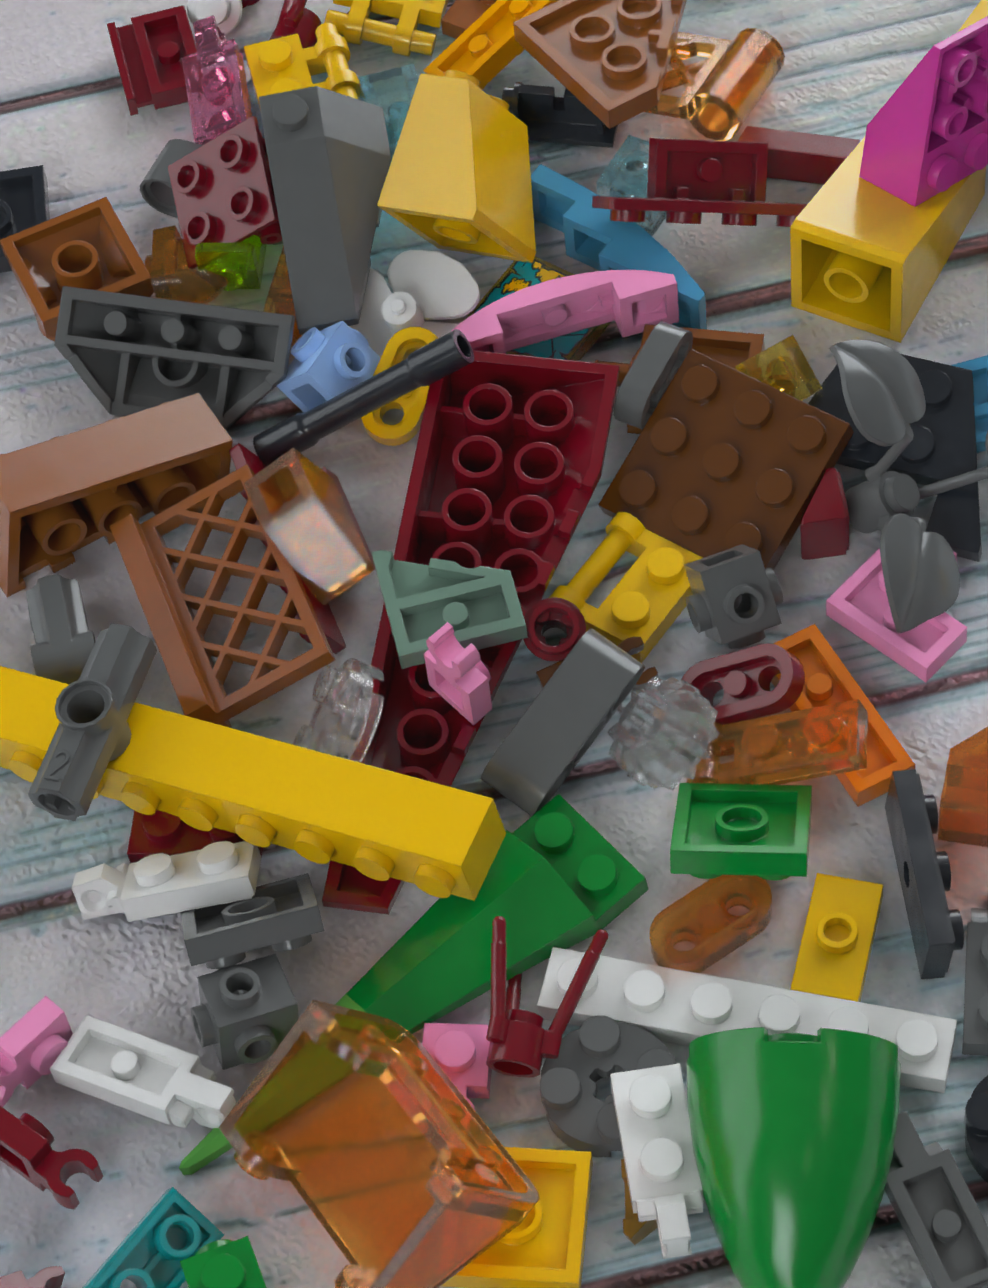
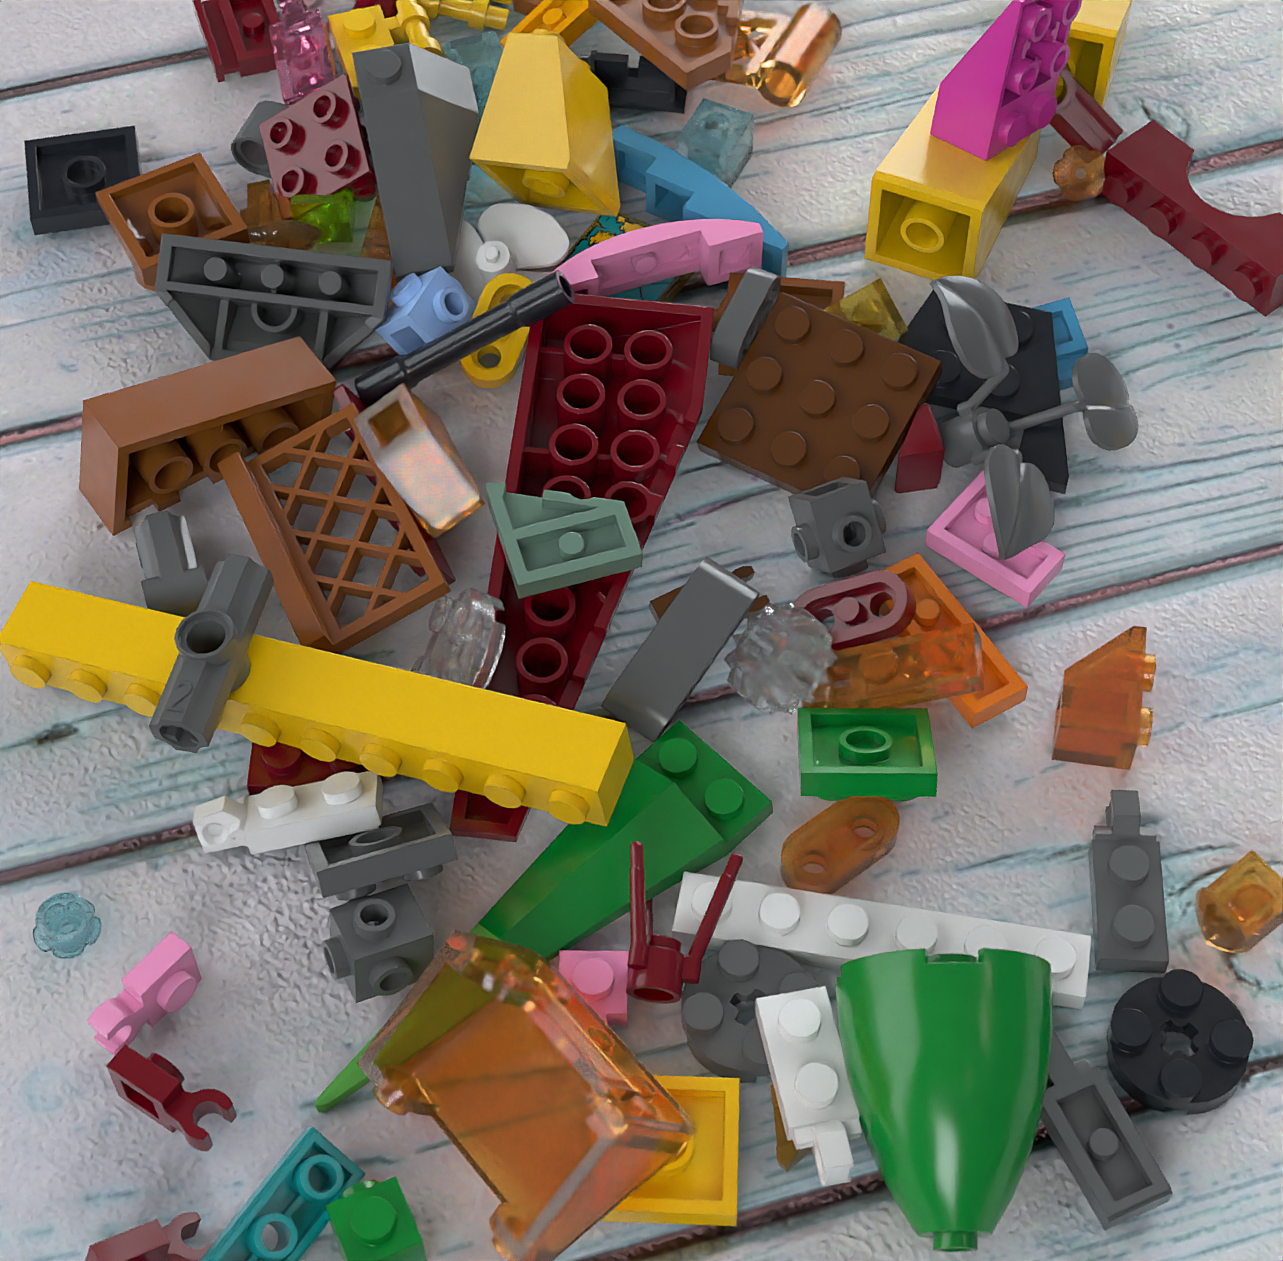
camera: 10 degrees left, 0 degrees up
(142, 1075) = (273, 1011): white hinge -> none
(458, 674) = (578, 602): bright pink plate -> none
(553, 614) = (673, 547): dark red cone -> none
(646, 596) = (748, 529): yellow plate -> none
(703, 178) = (780, 136): dark red bracket -> none
(801, 155) = (855, 121): dark red slope -> none
(838, 937) = (965, 856): yellow plate -> none
(923, 874) = (1044, 793): black tile -> none

